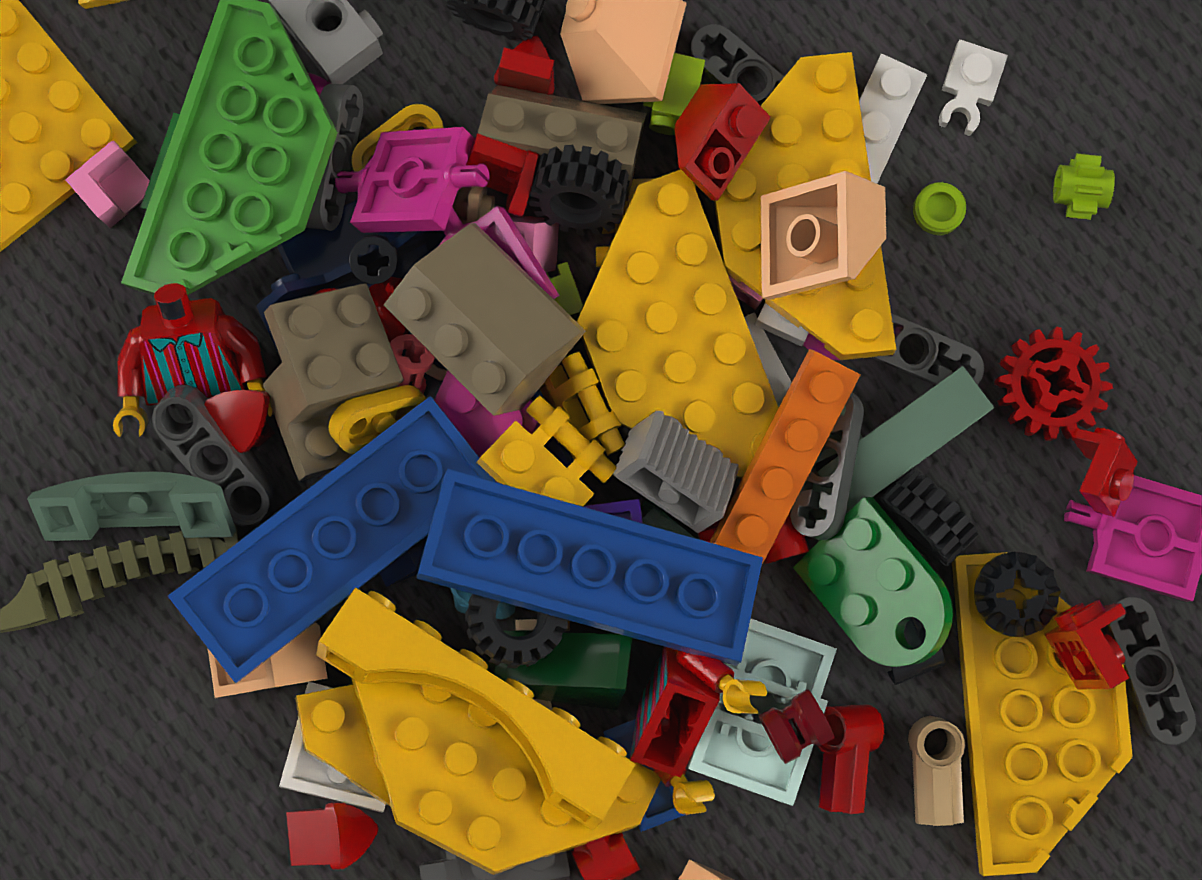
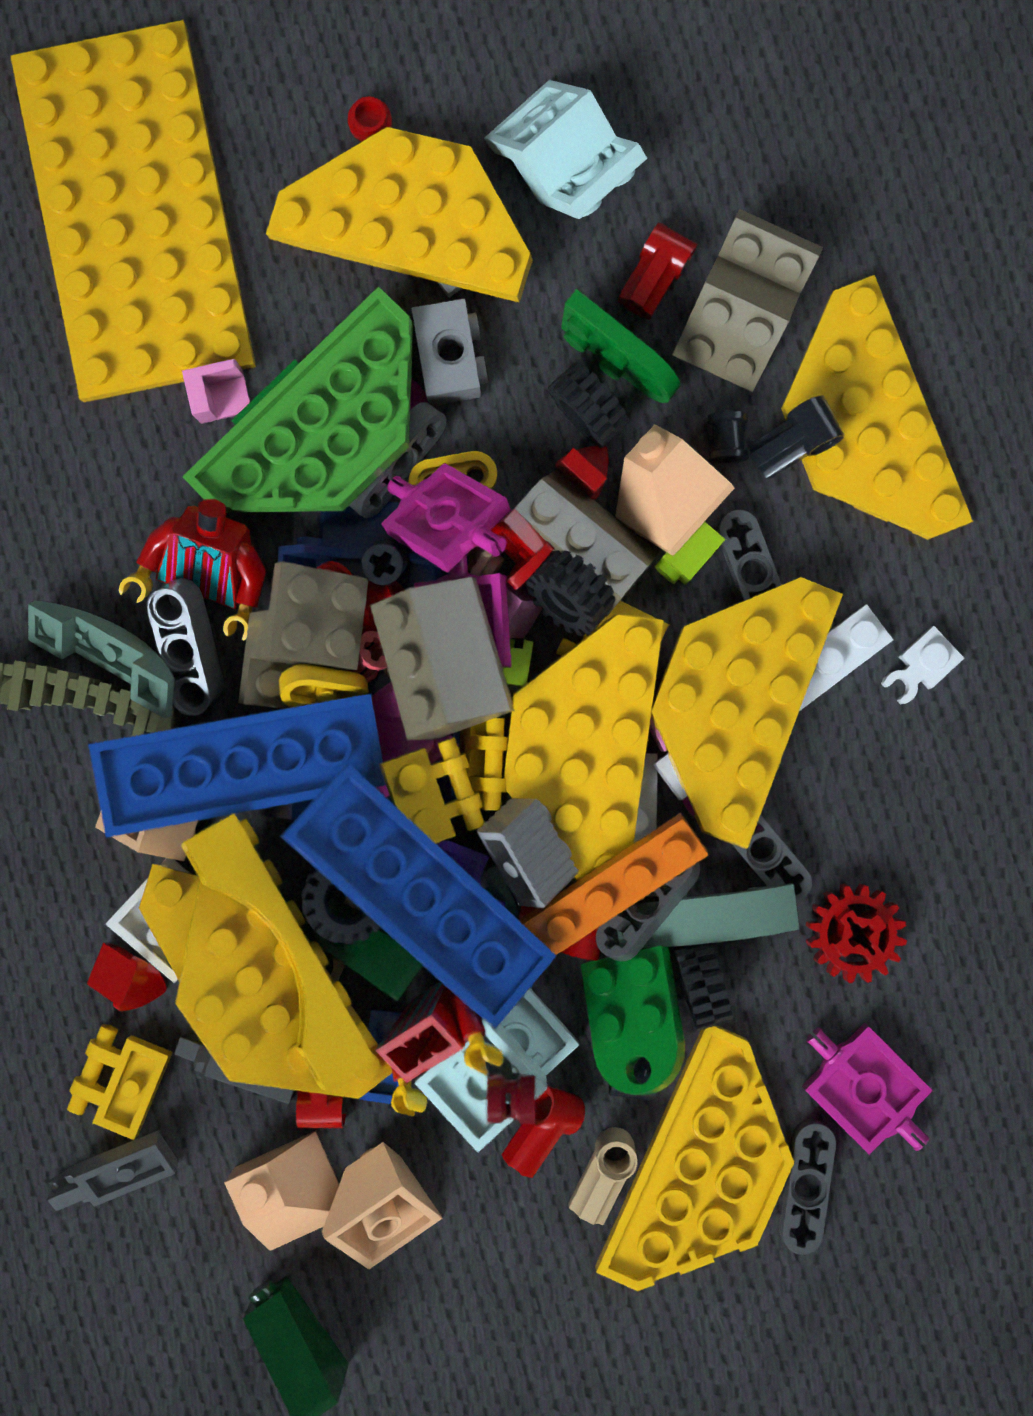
camera: 30 degrees right, 5 degrees up
(242, 417) = (220, 629): red tile -> none
(717, 134) = (700, 607): red slope -> none
(819, 233) = (736, 732): light nougat slope -> none
(939, 208) = (844, 749): lime tile -> none
(1002, 613) = (731, 1059): black gear -> none
(1083, 186) = (965, 793): lime gear -> none
(1083, 649) = (763, 1146): red bracket -> none
(1111, 469) = (860, 1028): red bracket -> none

